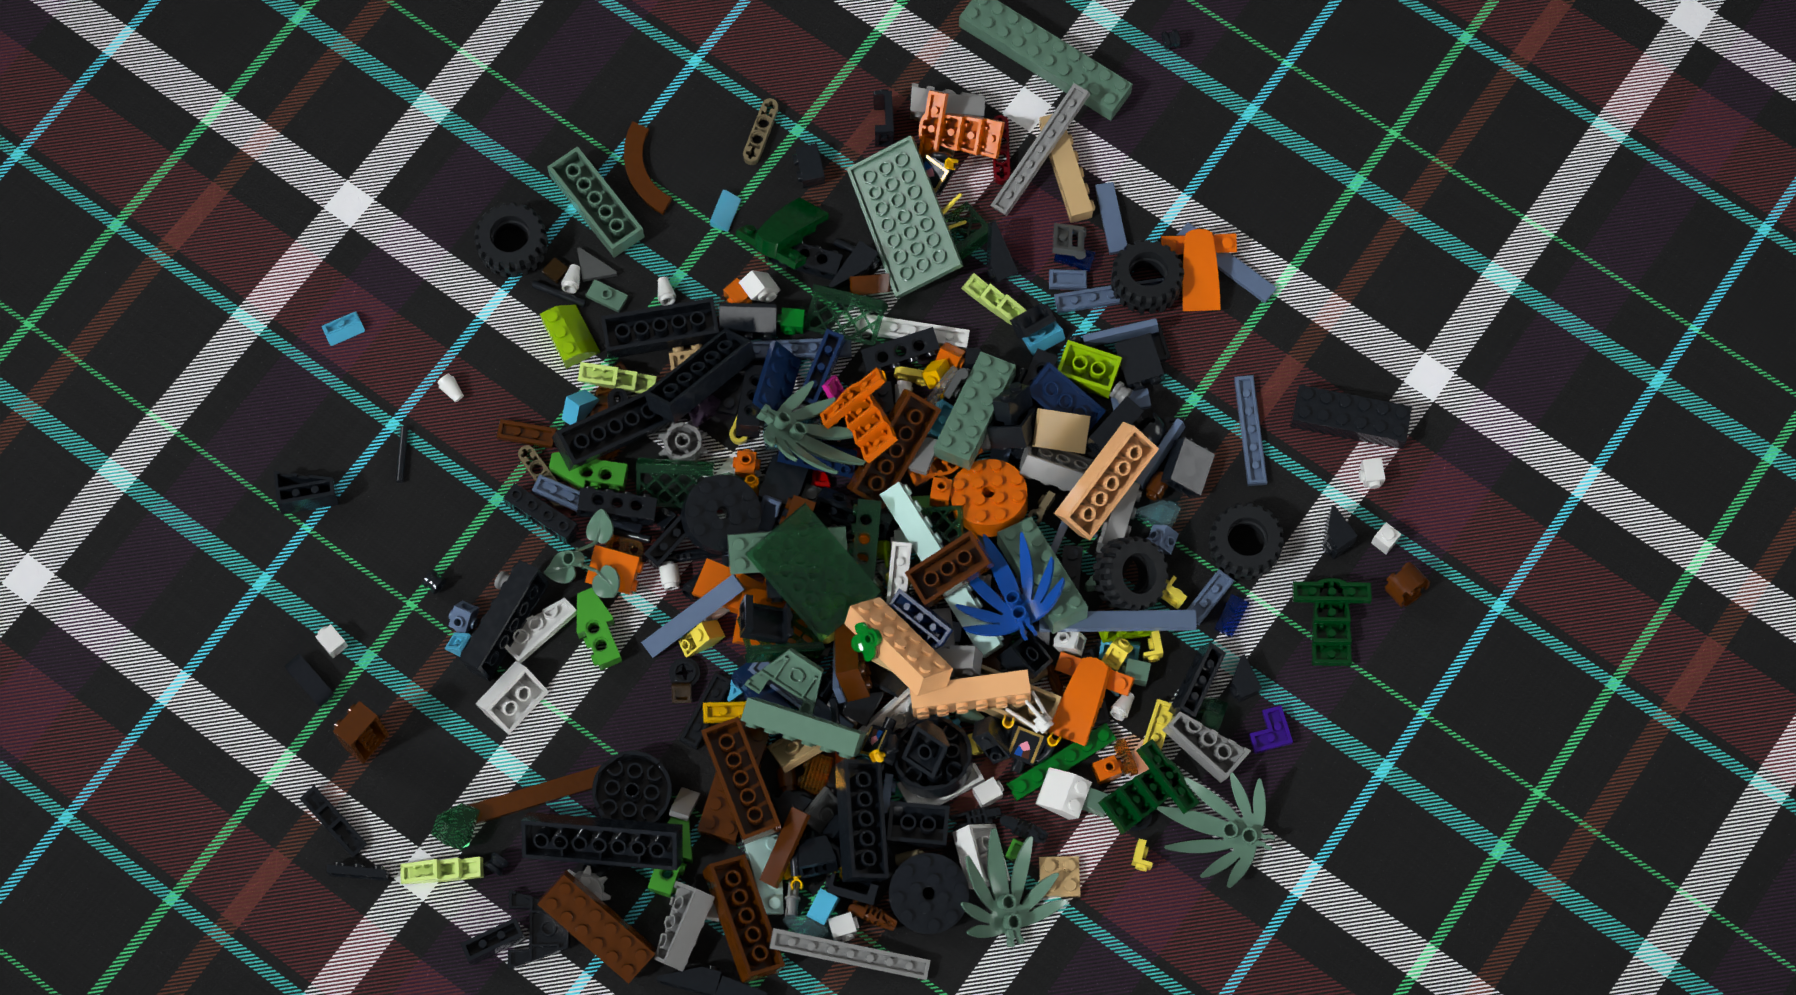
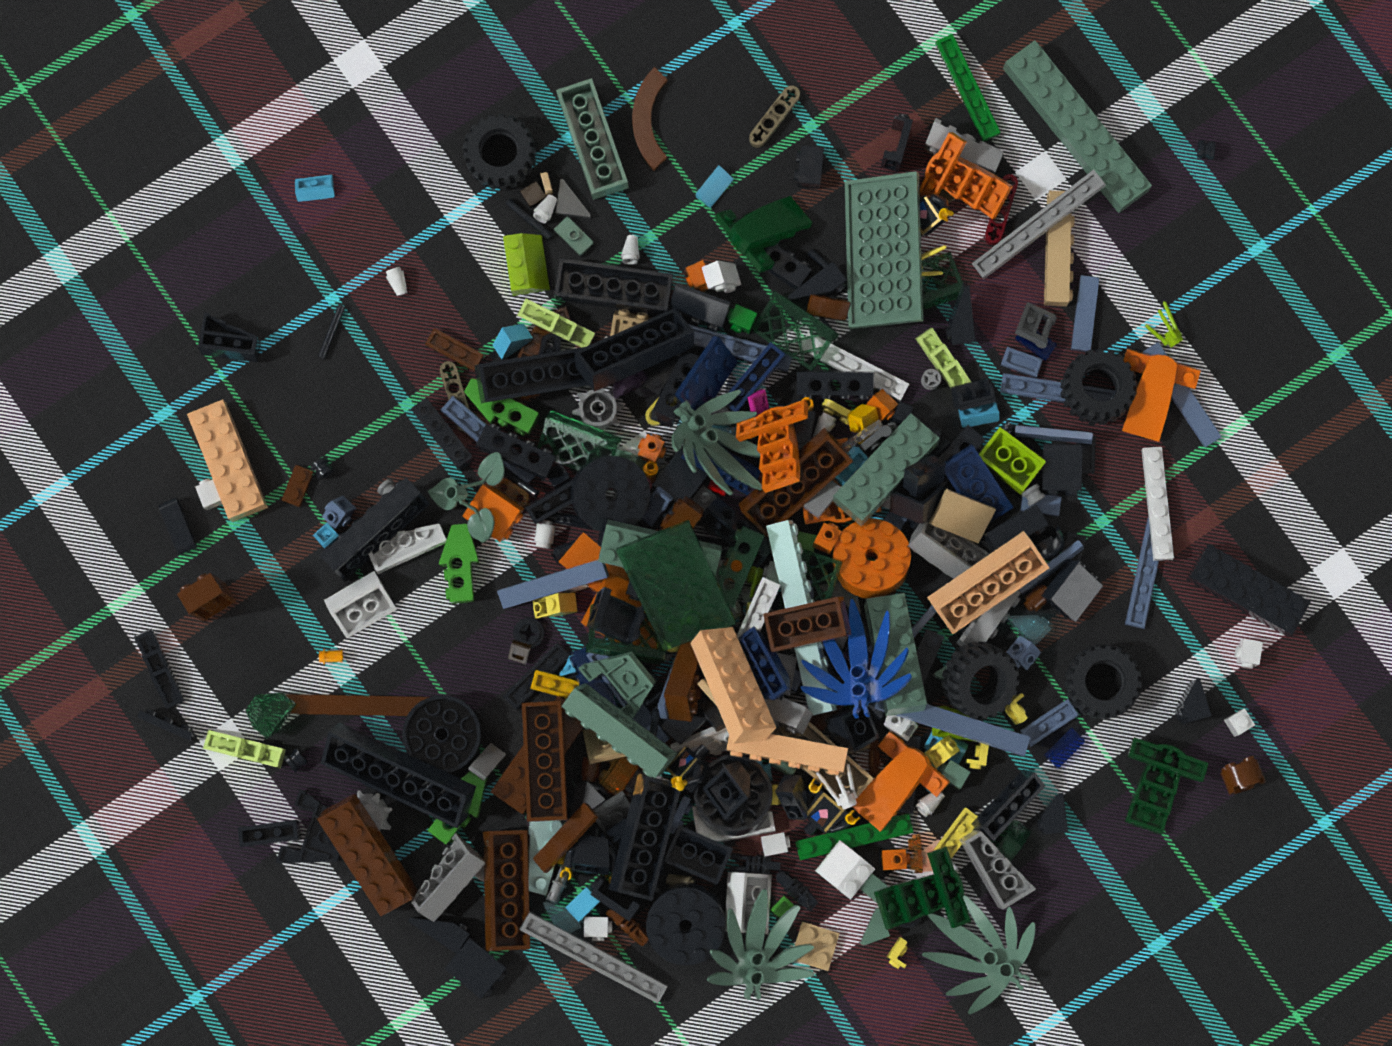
camera: 20 degrees right, 10 degrees up
(339, 603) = (227, 460): none -> light nougat brick
(415, 607) = (297, 486): none -> reddish brown plate
(499, 755) = (330, 656): none -> light orange pin
(565, 255) = (546, 183): none -> tan tile
(866, 641) = (703, 671): green plate -> none
(932, 51) = (967, 87): none -> green plate
(988, 316) = (932, 376): none -> light grey wheel
(1044, 504) = (923, 579): dark tan plate -> none
(1112, 840) = (875, 929): none -> sand green slope
(1199, 212) = (1173, 336): none -> lime plant
(1239, 365) = (1157, 503): none -> white plate
(1275, 735) = (1067, 878): dark purple plate -> none

